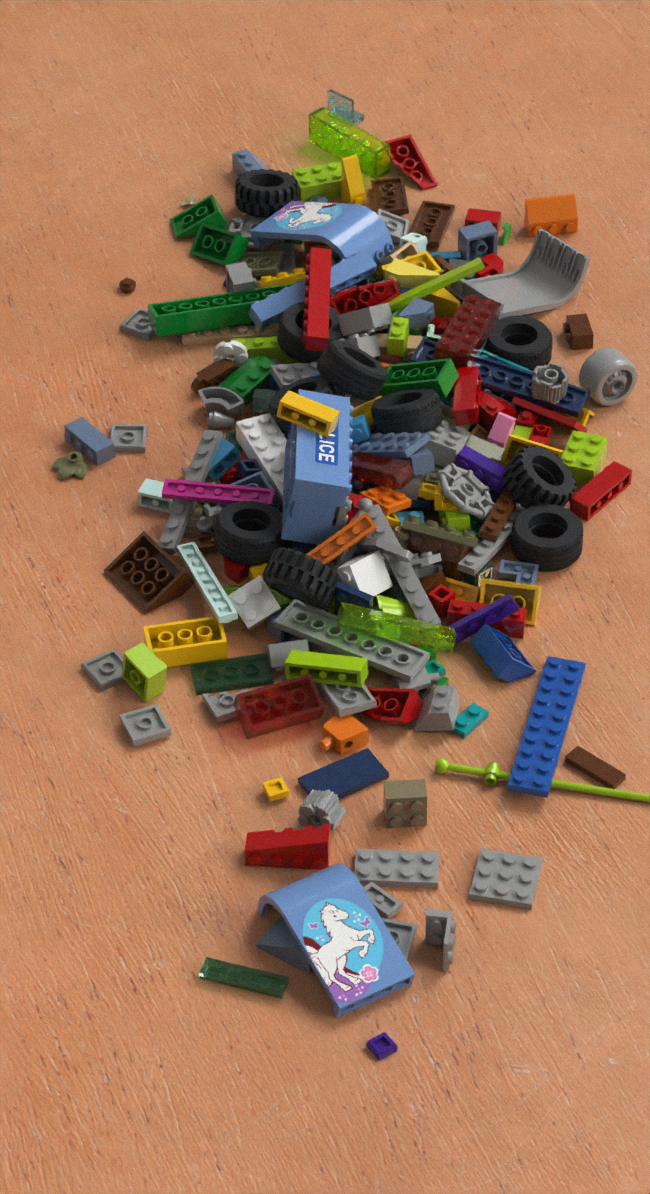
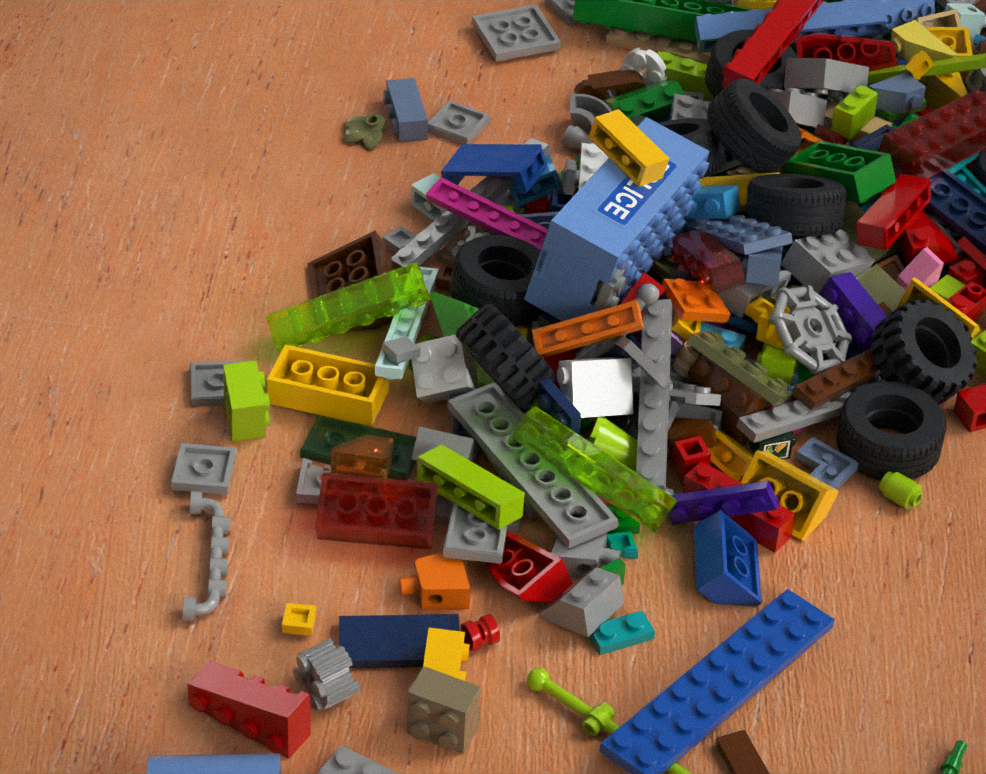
camera: 25 degrees right, 0 degrees up
(120, 359) = (516, 33): none -> light grey plate
(154, 531) = (397, 239): none -> light grey plate
(166, 587) = (349, 307): none -> clear neon green brick
(191, 767) = (217, 566): none -> light grey bar
(192, 455) = (521, 161): none -> blue panel
(226, 600) = (401, 349): none -> light grey tile
(240, 567) = (451, 312): none -> bright green slope
(244, 447) = (571, 177): none -> light grey plate
(245, 677) = (363, 457): none -> clear orange slope
(380, 770) = (446, 652): none -> yellow brick
(391, 751) = (481, 632): none -> red wheel
(421, 289) = (919, 64): none -> yellow plate
(573, 571) = (901, 489): none -> lime brick

